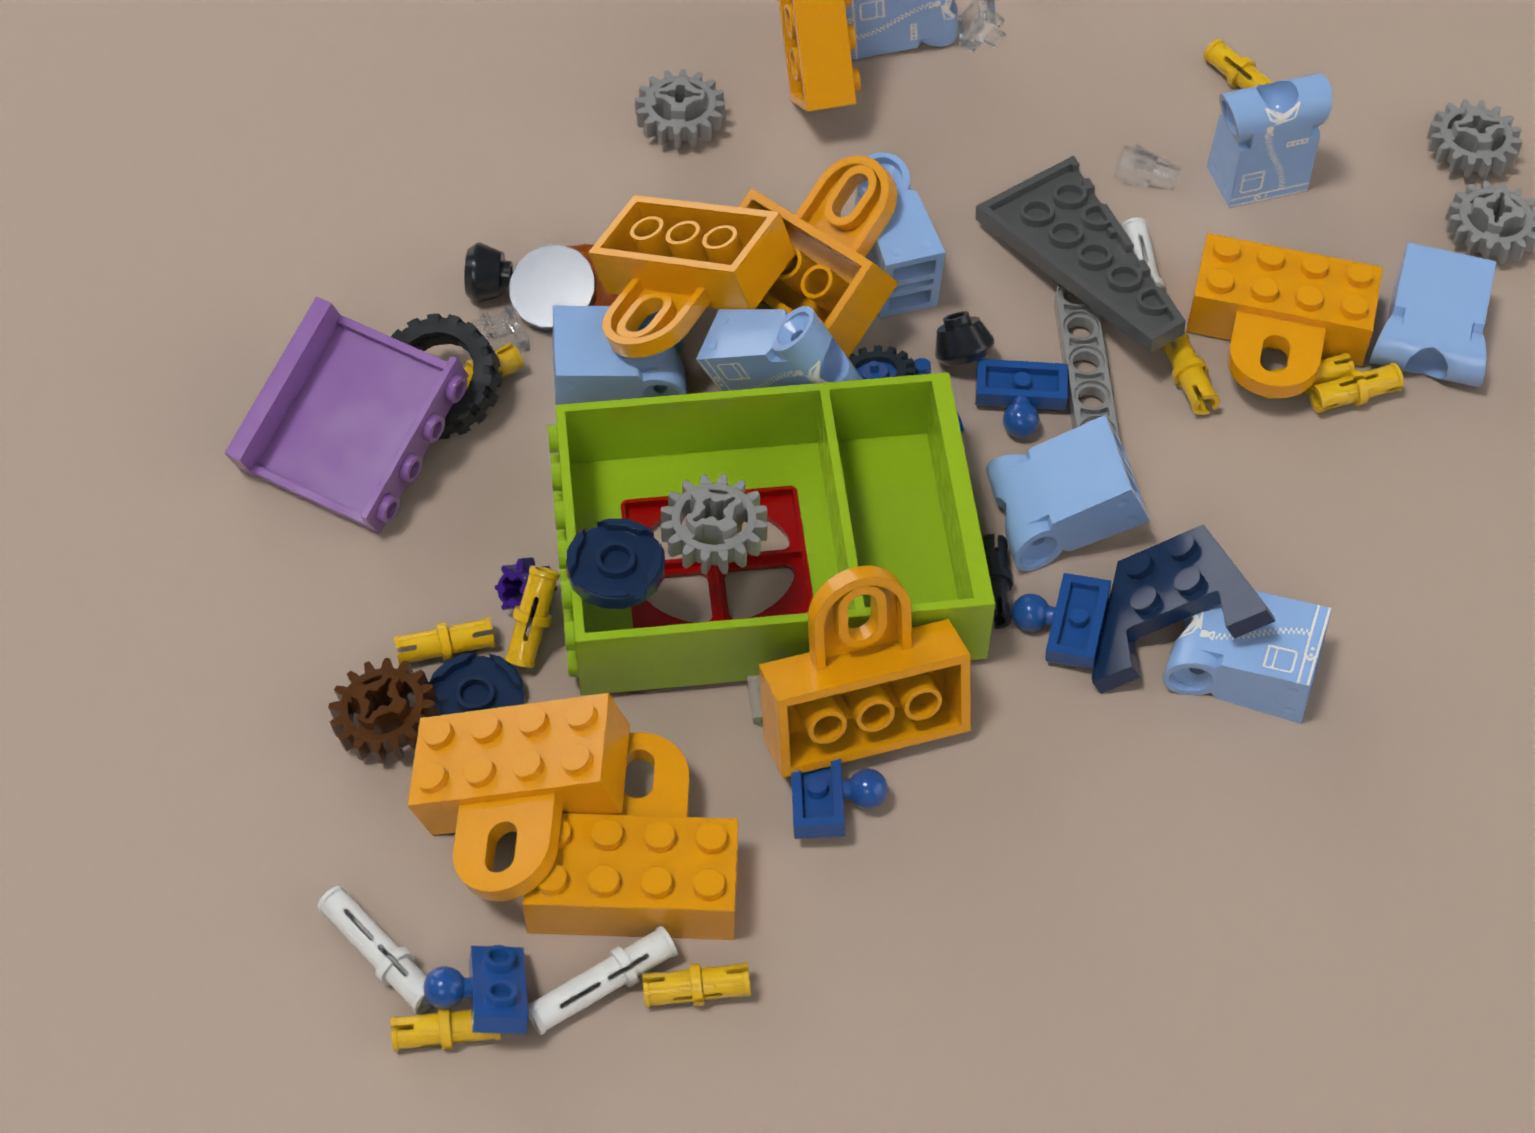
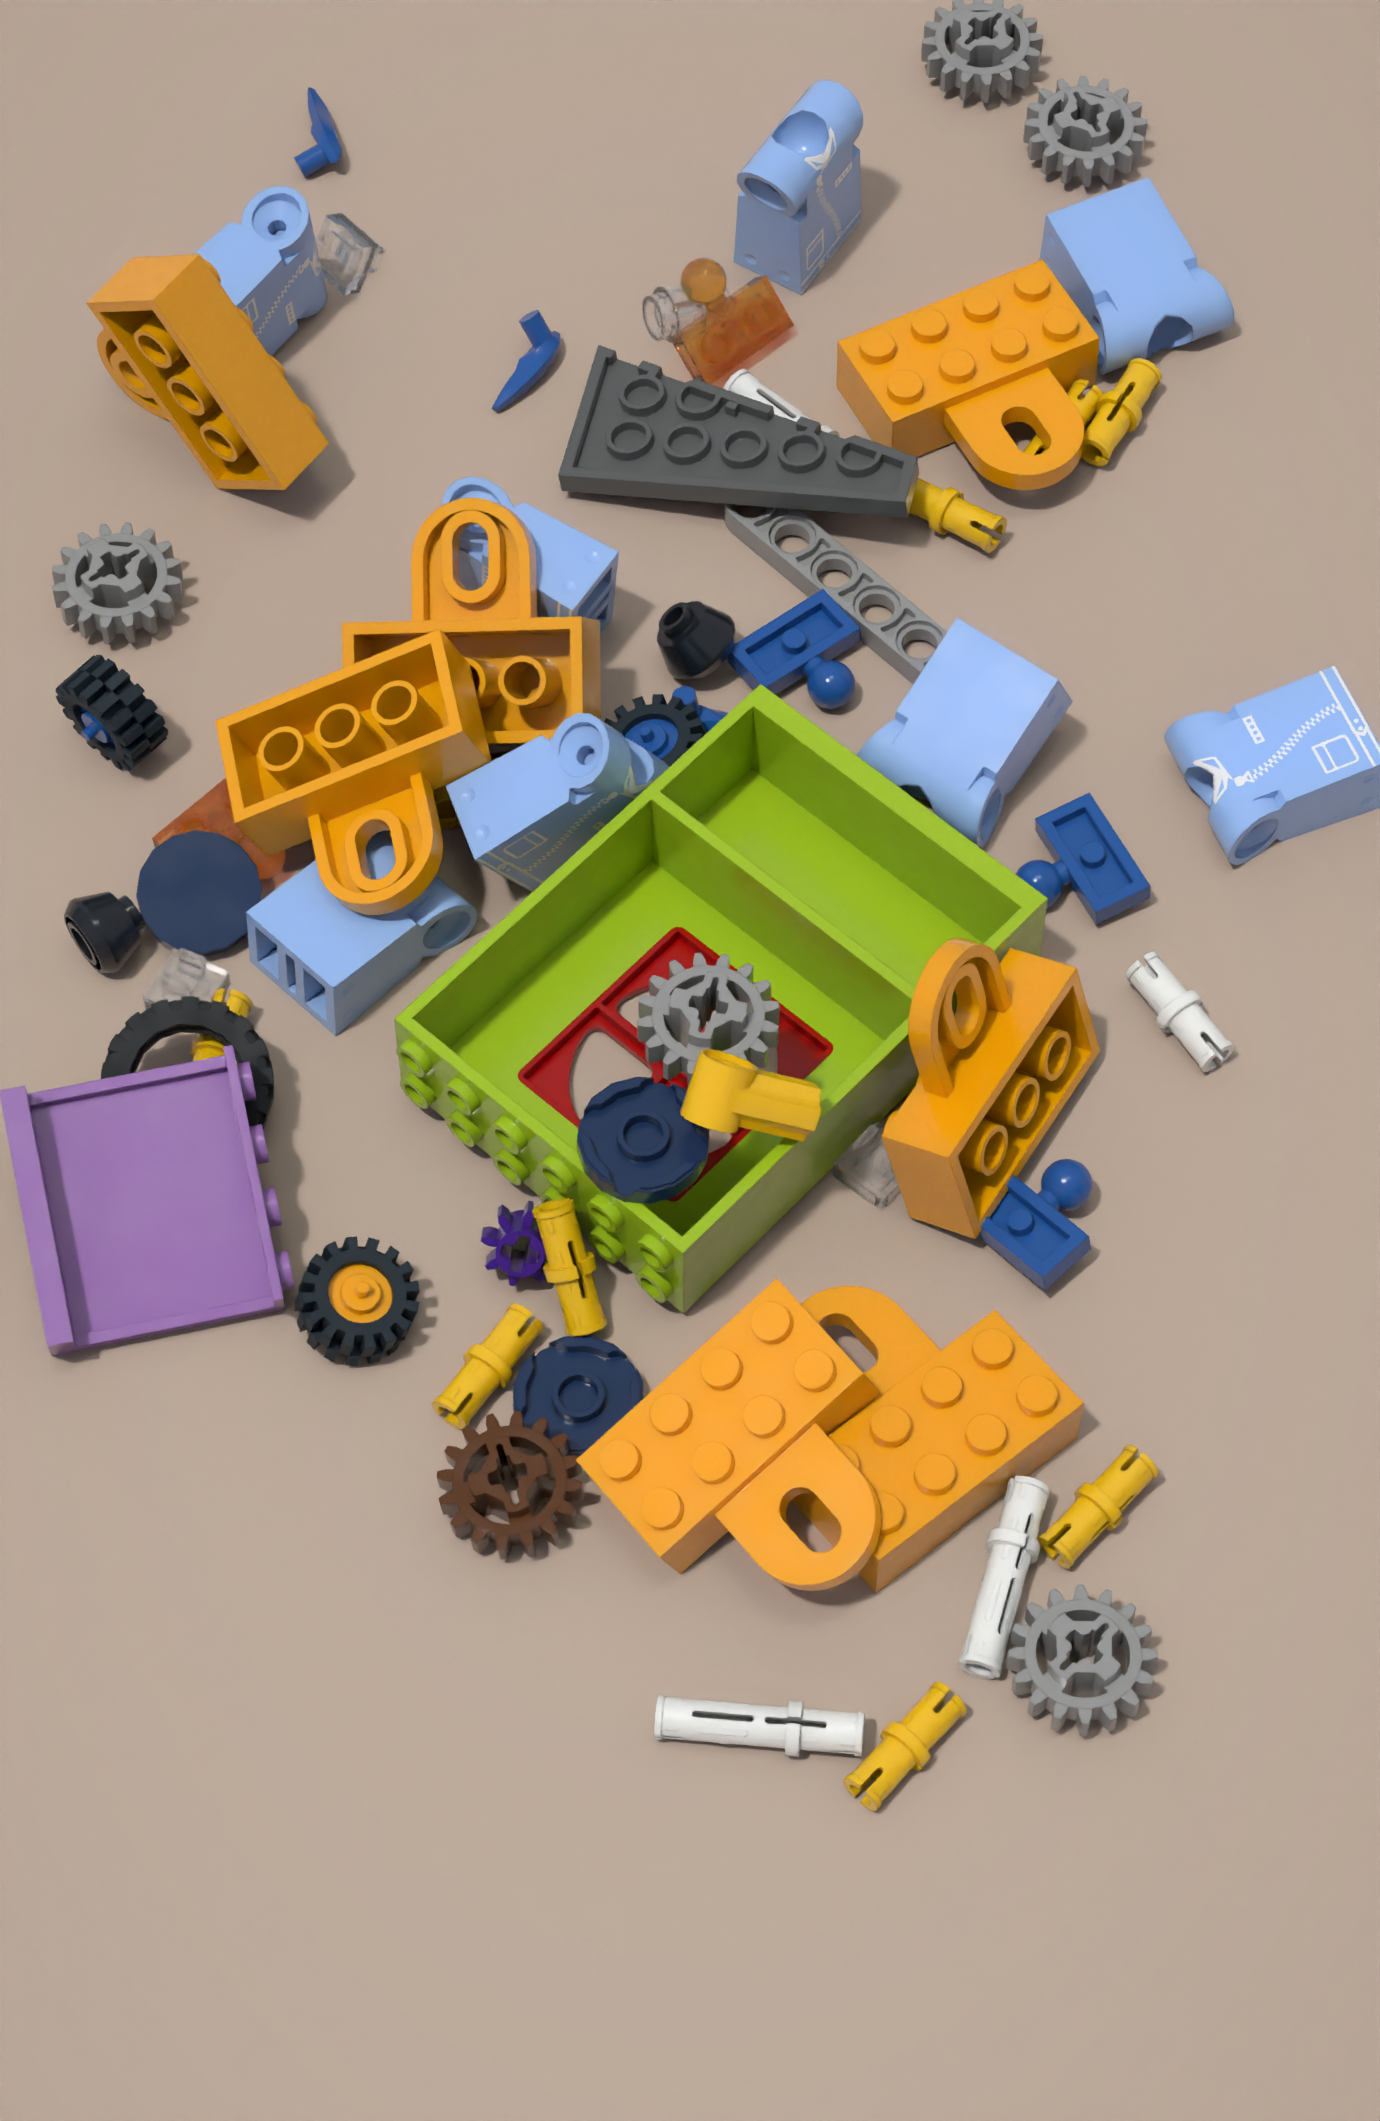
camera: 40 degrees left, 5 degrees up
(408, 552) = (357, 1301): none -> black wheel
(494, 988) = (917, 1664): blue plate -> none
(568, 1062) = (1087, 1688): none -> light grey gear
(601, 165) = (111, 712): none -> black wheel
(676, 567) = (734, 1094): none -> yellow piece
(1029, 144) = (534, 362): none -> blue bar
(1042, 744) = (1179, 1011): none -> white pin
(1160, 193) = (731, 326): none -> clear orange plate
(1167, 587) = (1155, 754): dark blue wing -> none
(1223, 58) = (637, 120): yellow pin -> none

